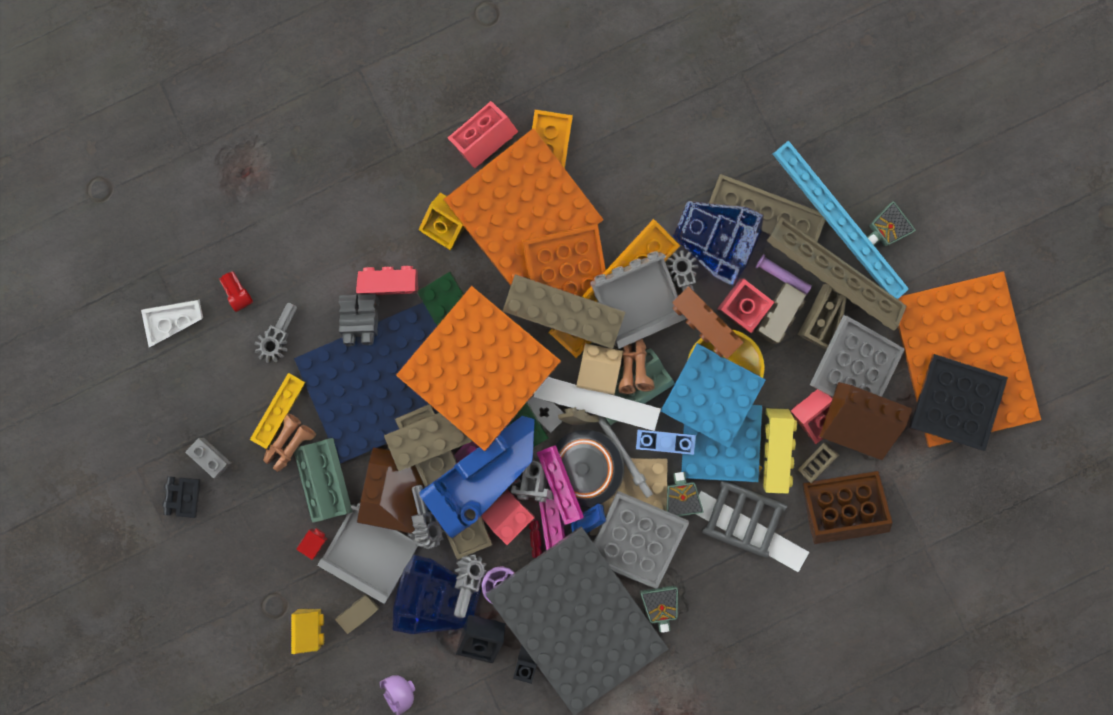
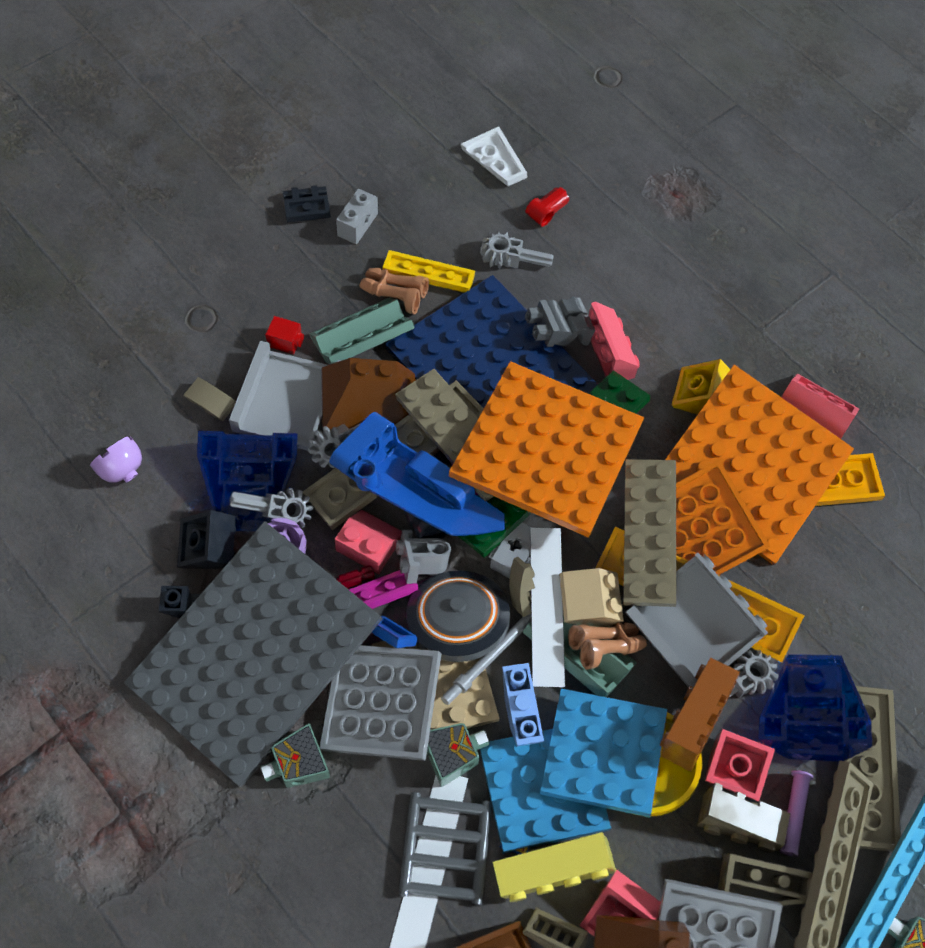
camera: 70 degrees right, 25 degrees down
(306, 630) = (178, 345): yellow slope -> none
(560, 485) = (428, 584): dark pink plate -> none

